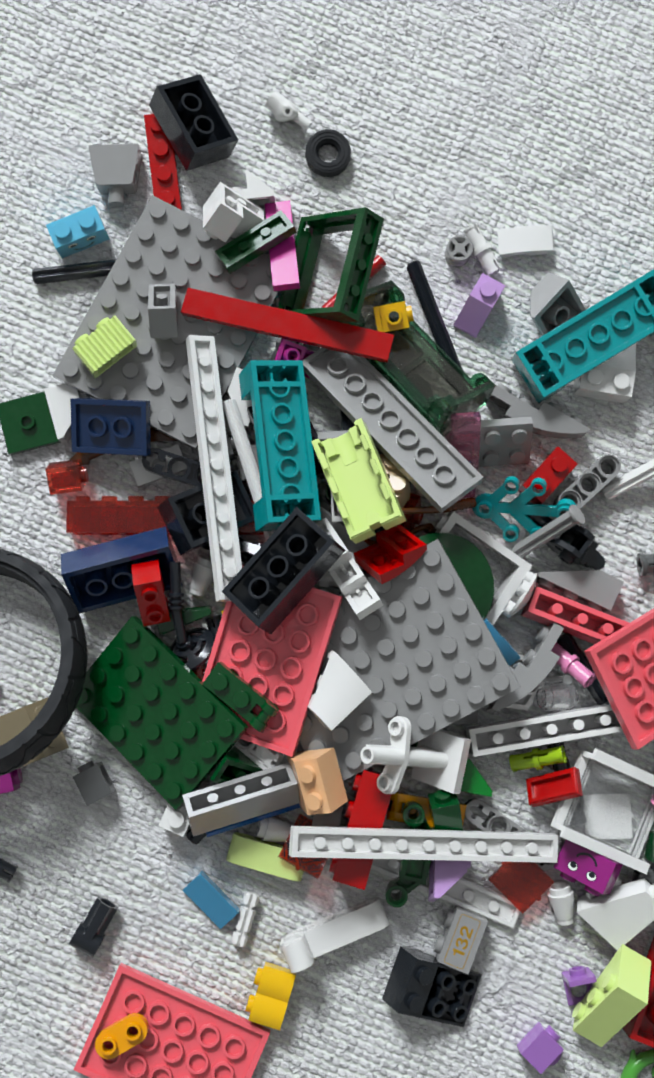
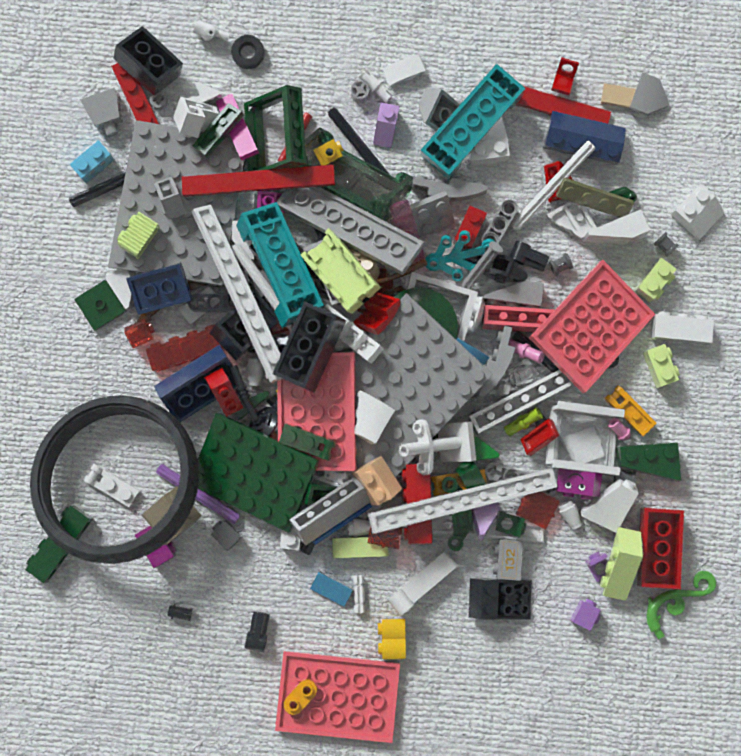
camera: 10 degrees left, 0 degrees up
(78, 720) = (202, 496): none -> medium lavender axle
(196, 186) = (163, 104): none -> light grey bush
(486, 900) = (517, 528): none -> dark green bracket
(526, 708) = (505, 389): none -> white hand
(609, 535) = (524, 254): none -> black piece

